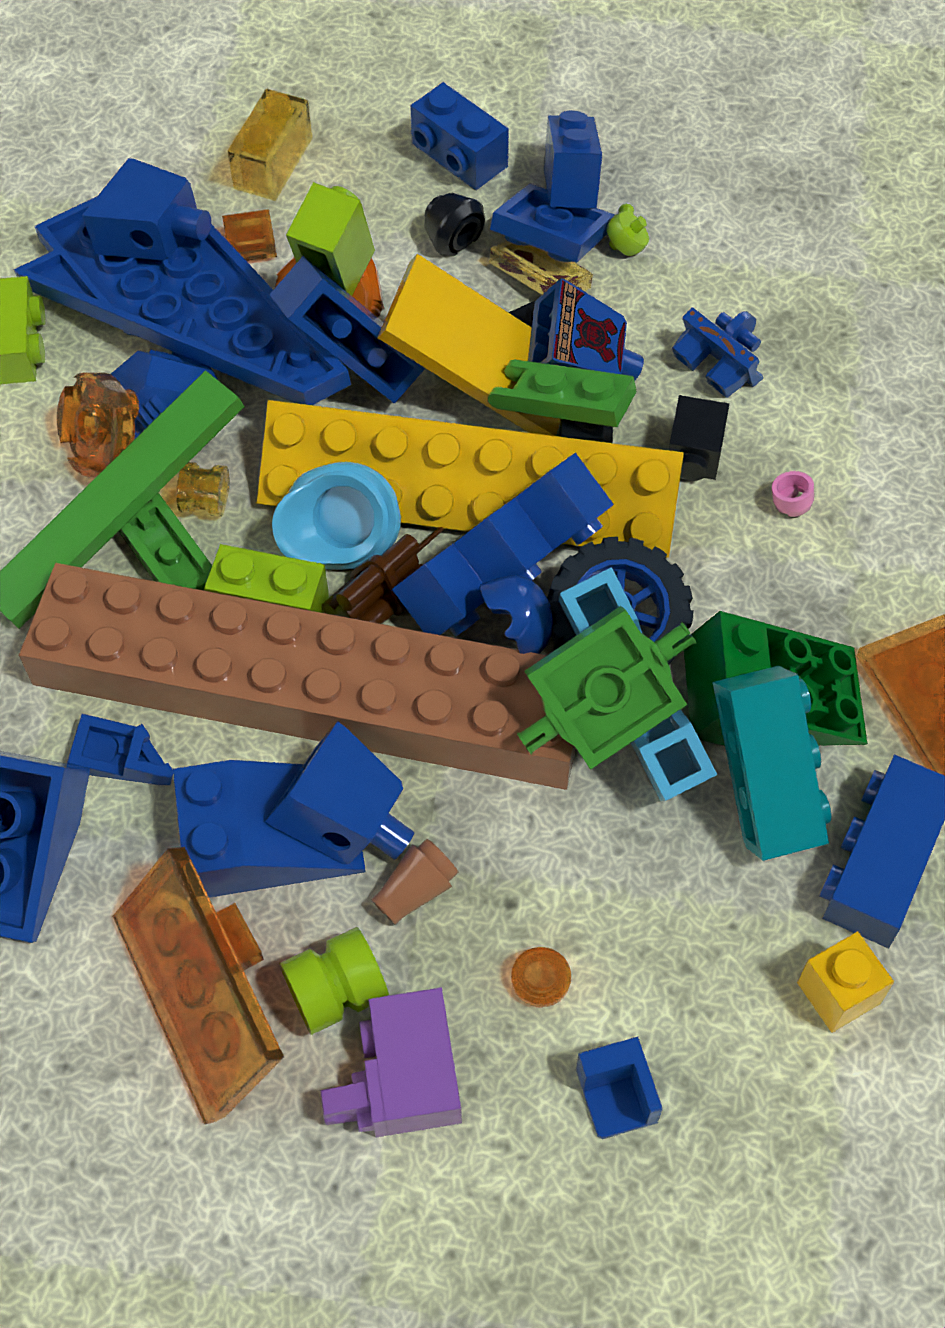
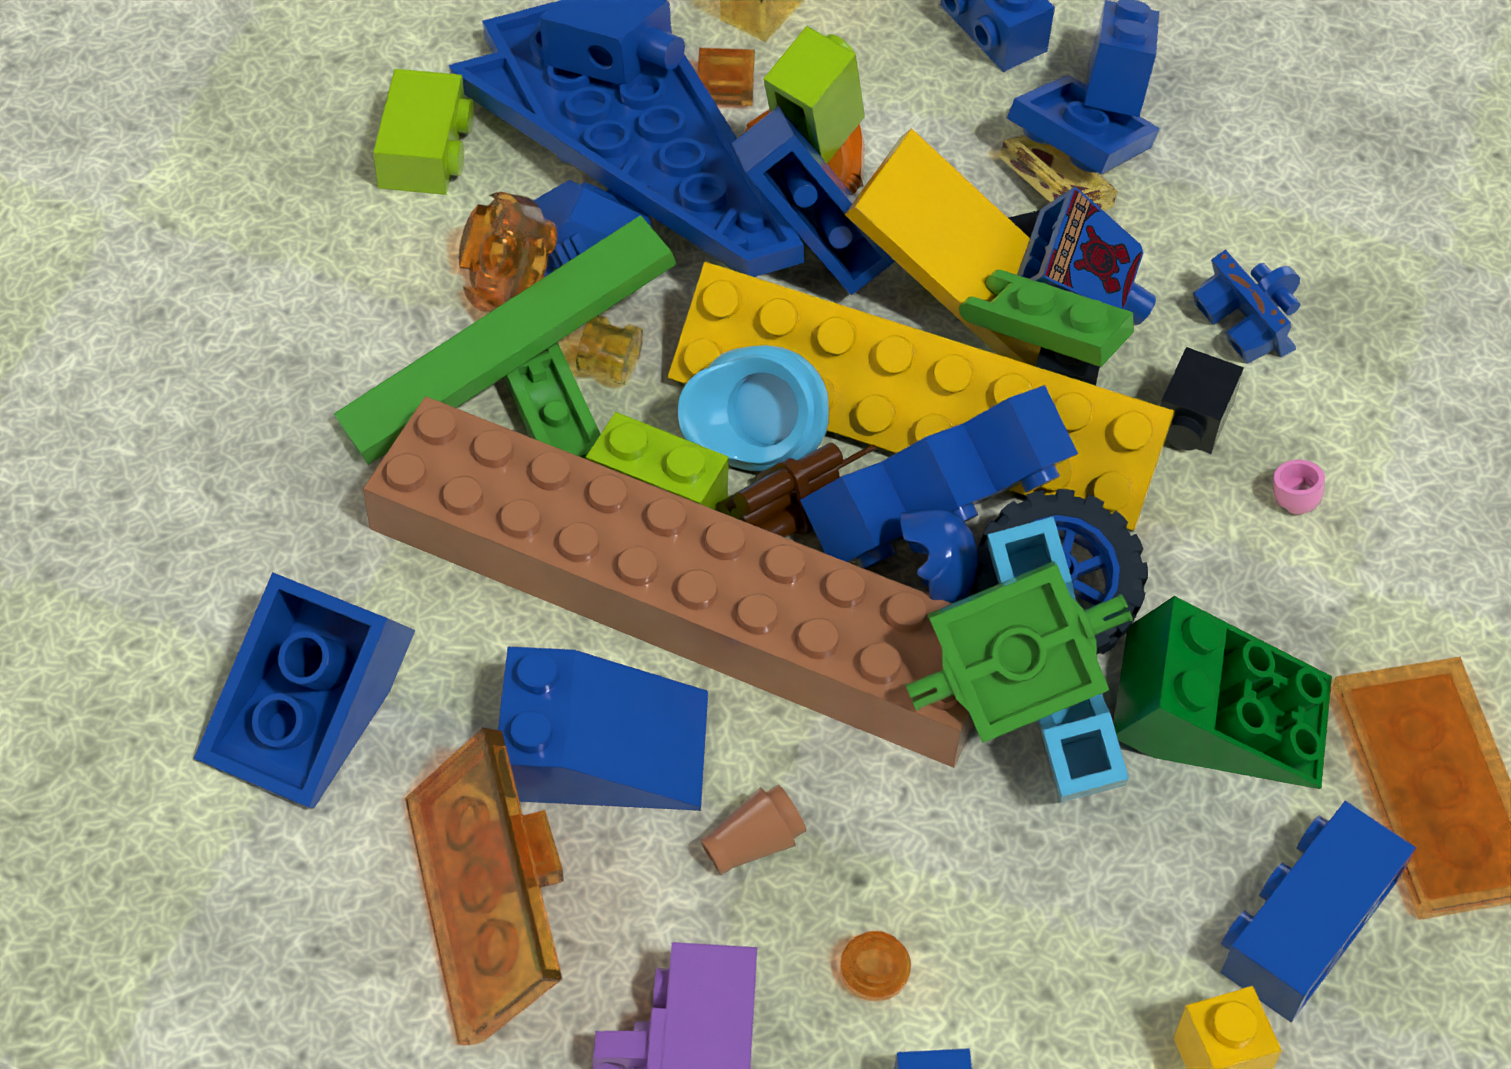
camera: 10 degrees right, 5 degrees down
(118, 752) = (450, 621): blue slope -> none
(334, 980) = (636, 915): lime wheel -> none
(342, 801) = (691, 723): blue torso -> none
(453, 222) = (967, 102): black cone -> none
(627, 231) = (1171, 151): lime piece -> none
(773, 762) = (1197, 778): teal brick -> none

